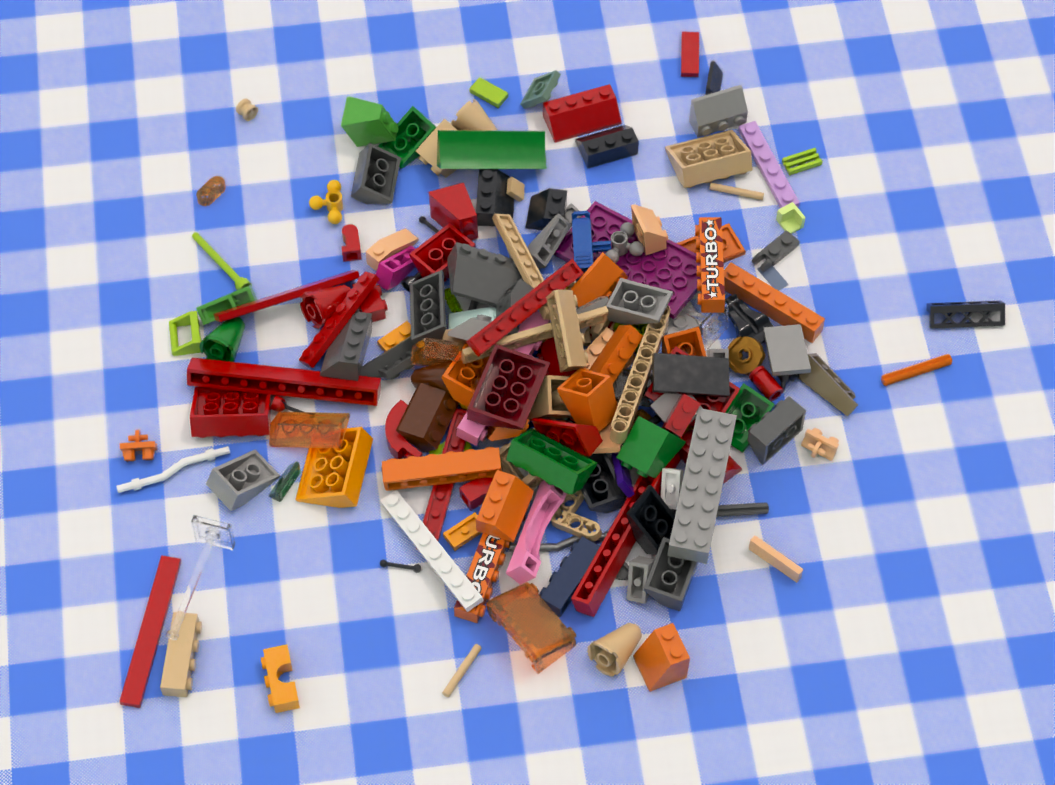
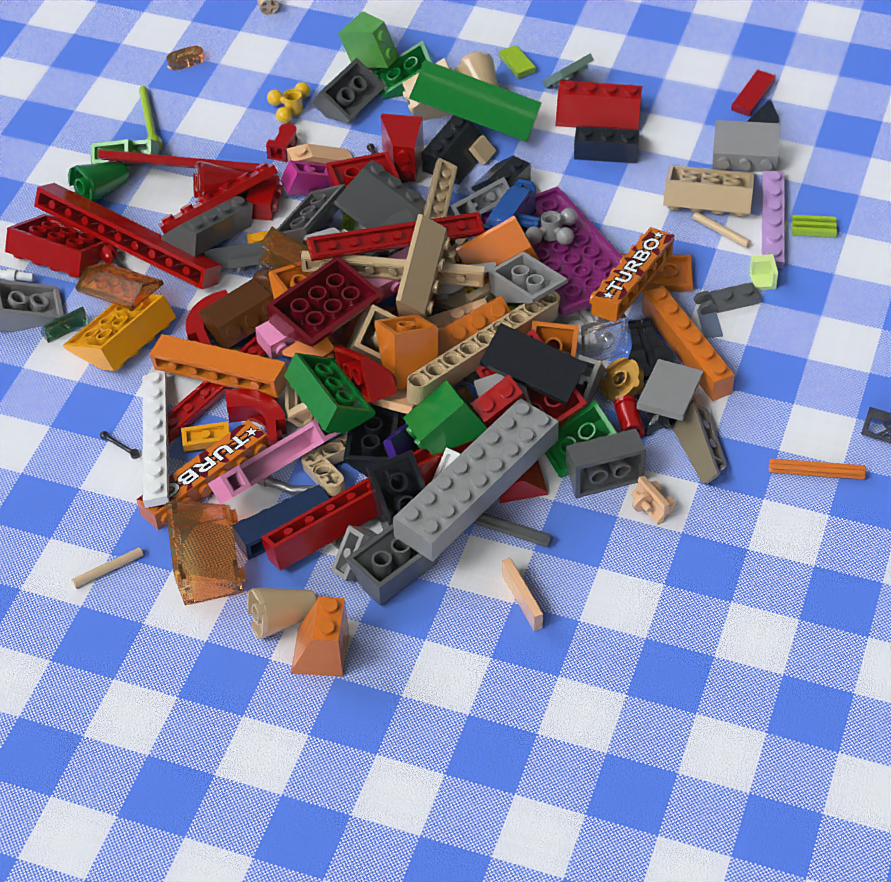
camera: 30 degrees right, 10 degrees down
(189, 318) = (78, 155): lime tile -> none
(504, 506) = (253, 421): orange slope -> none
(648, 229) = (588, 220): light nougat slope -> none

